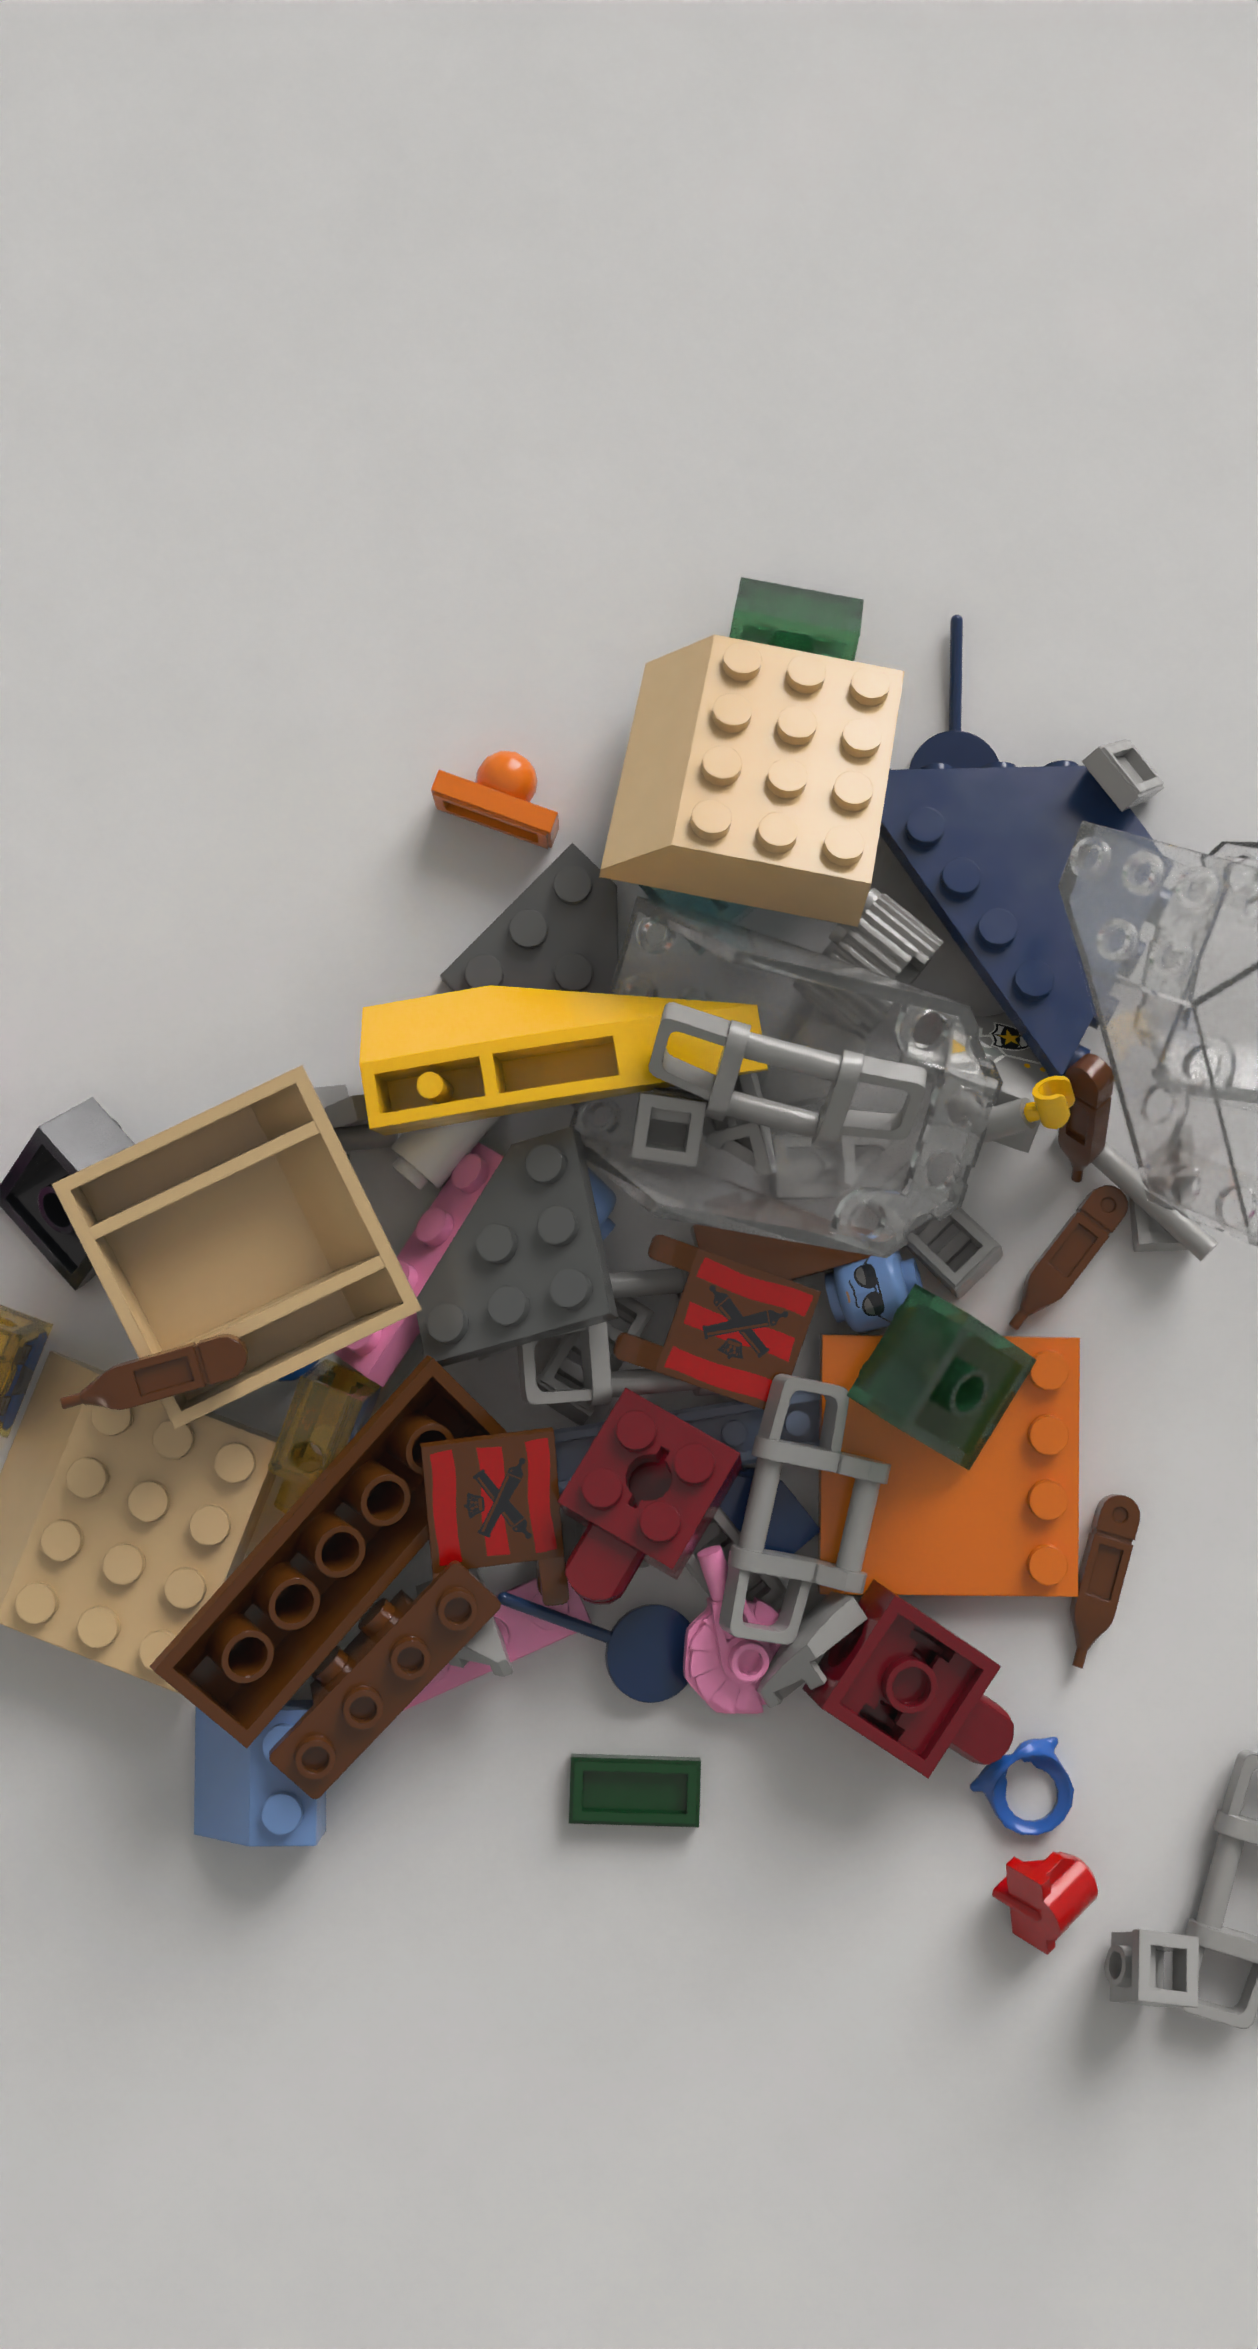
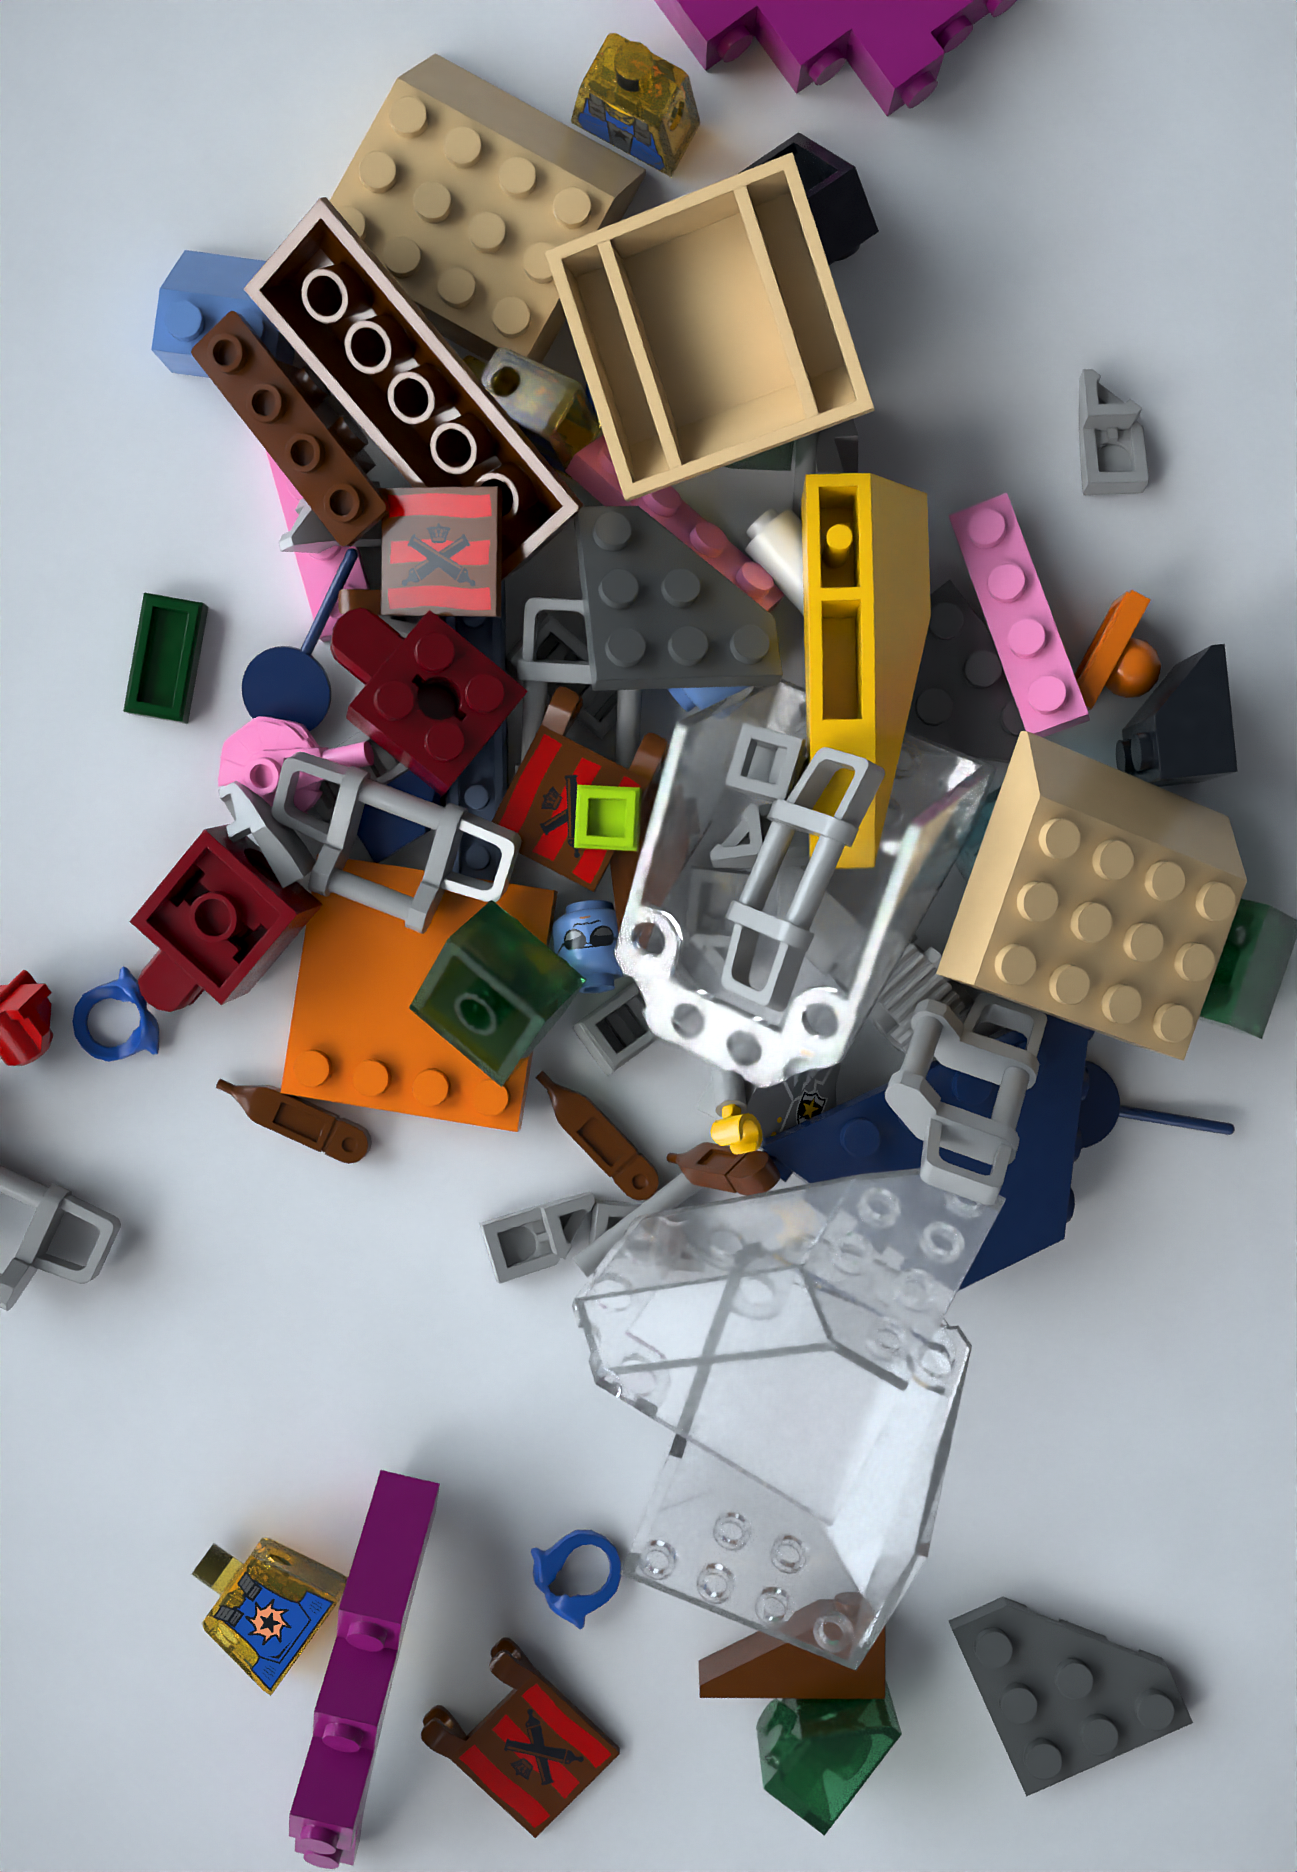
camera: 100 degrees right, 5 degrees up
(164, 1374) = (596, 244): reddish brown piece -> none
(274, 834) = (1109, 440): none -> light grey slope
(472, 899) = (1019, 617): none -> bright pink plate
(563, 721) = (1183, 726): none -> black slope
(744, 1286) = (608, 817): none -> lime tile
(1017, 895) = (938, 1124): none -> light grey bar
(1123, 774) = (1052, 1261): light grey tile -> none
(1182, 1307) = (534, 1236): none -> light grey slope

